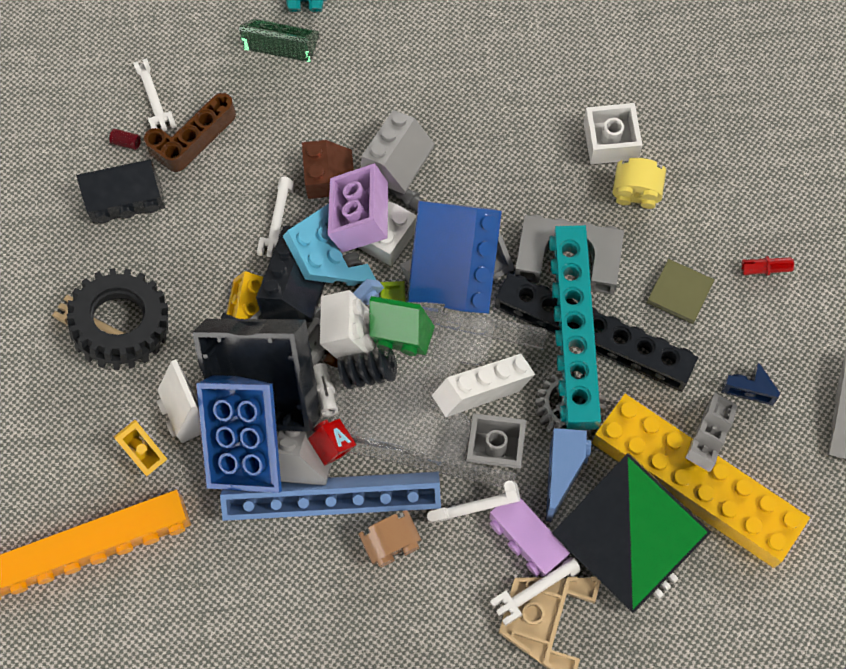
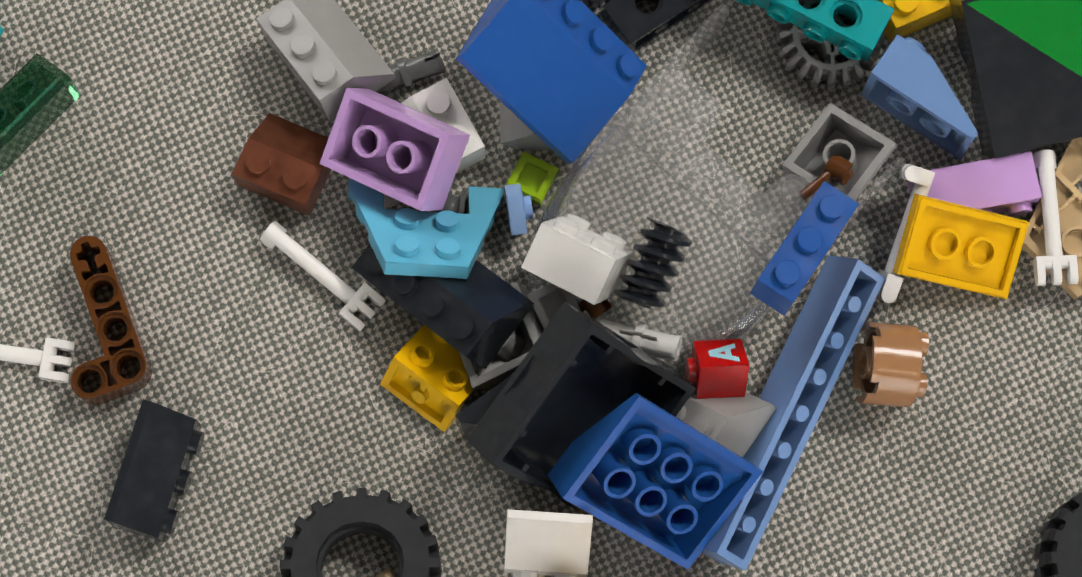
camera: 65 degrees left, 10 degrees up
(120, 139) = (52, 427): dark red piece -> none
(399, 326) = (626, 189): slope -> none
(421, 441) = (804, 248): none -> blue brick
(482, 385) = (755, 128): white brick -> none
(483, 438) = (836, 169): none -> reddish brown hand
(486, 543) = (960, 246): none -> yellow tile

